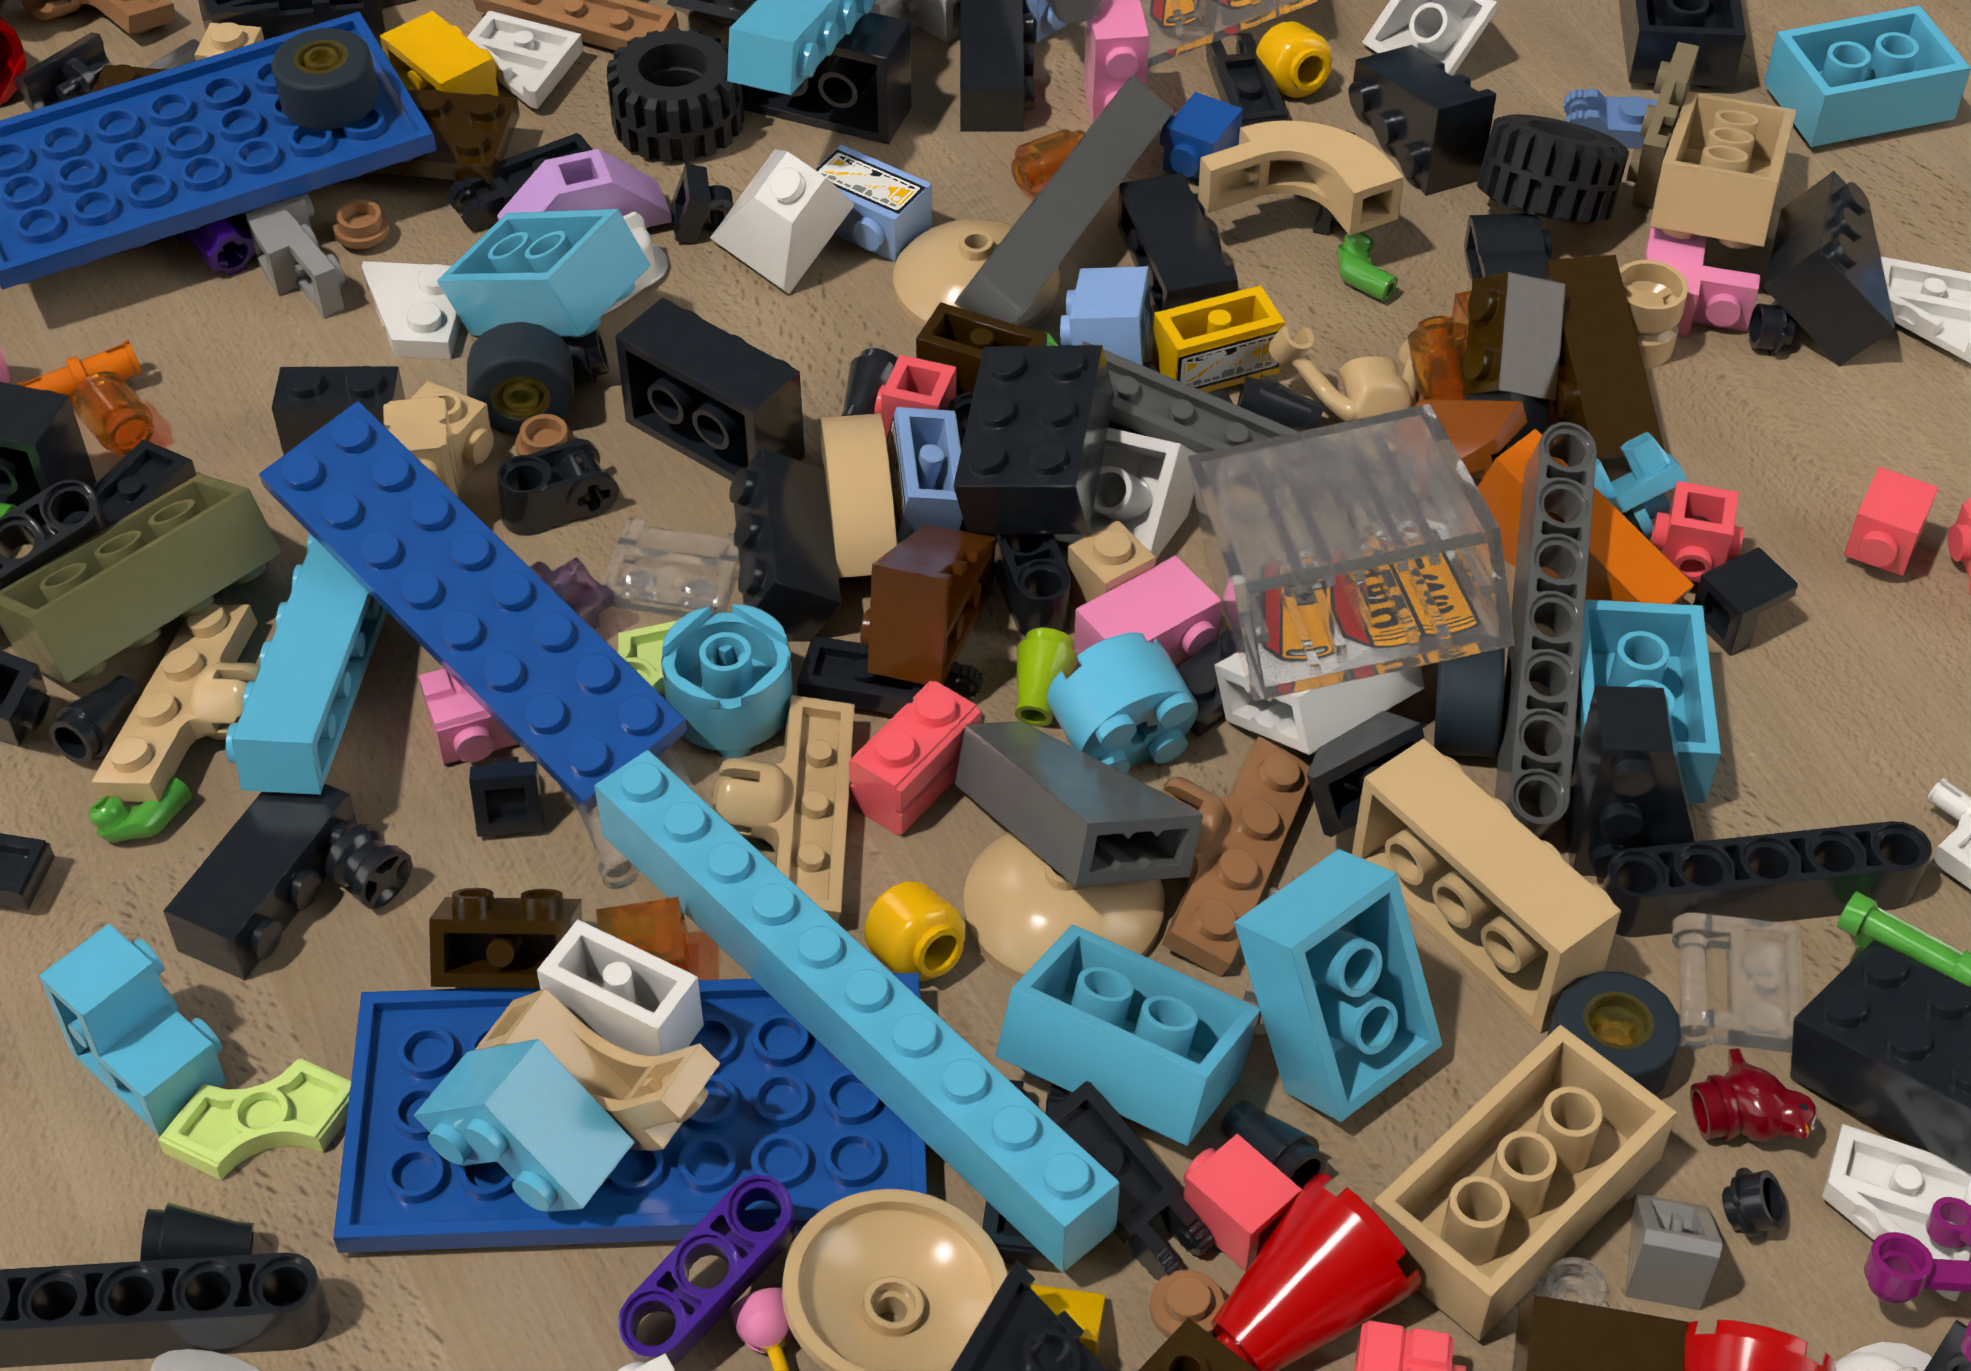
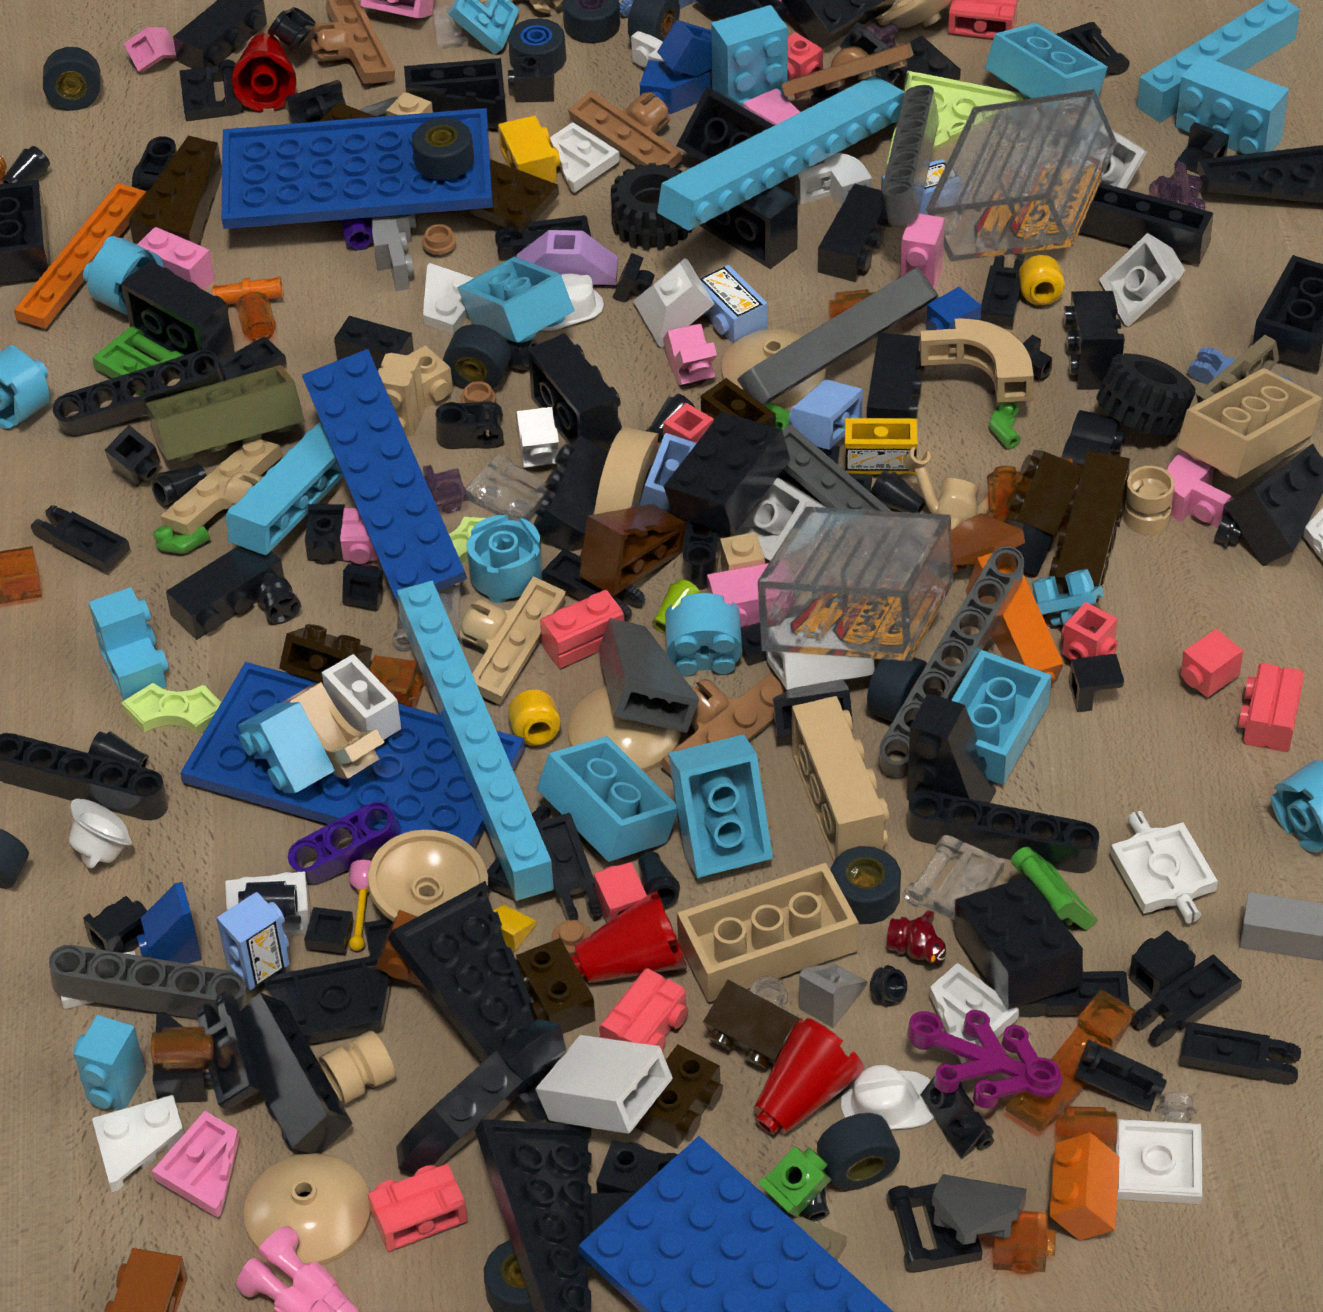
camera: 25 degrees right, 0 degrees up
(398, 726) = (324, 532): none -> black brick
(678, 474) = (537, 437): none -> white brick
(848, 290) = (689, 354): none -> bright pink brick

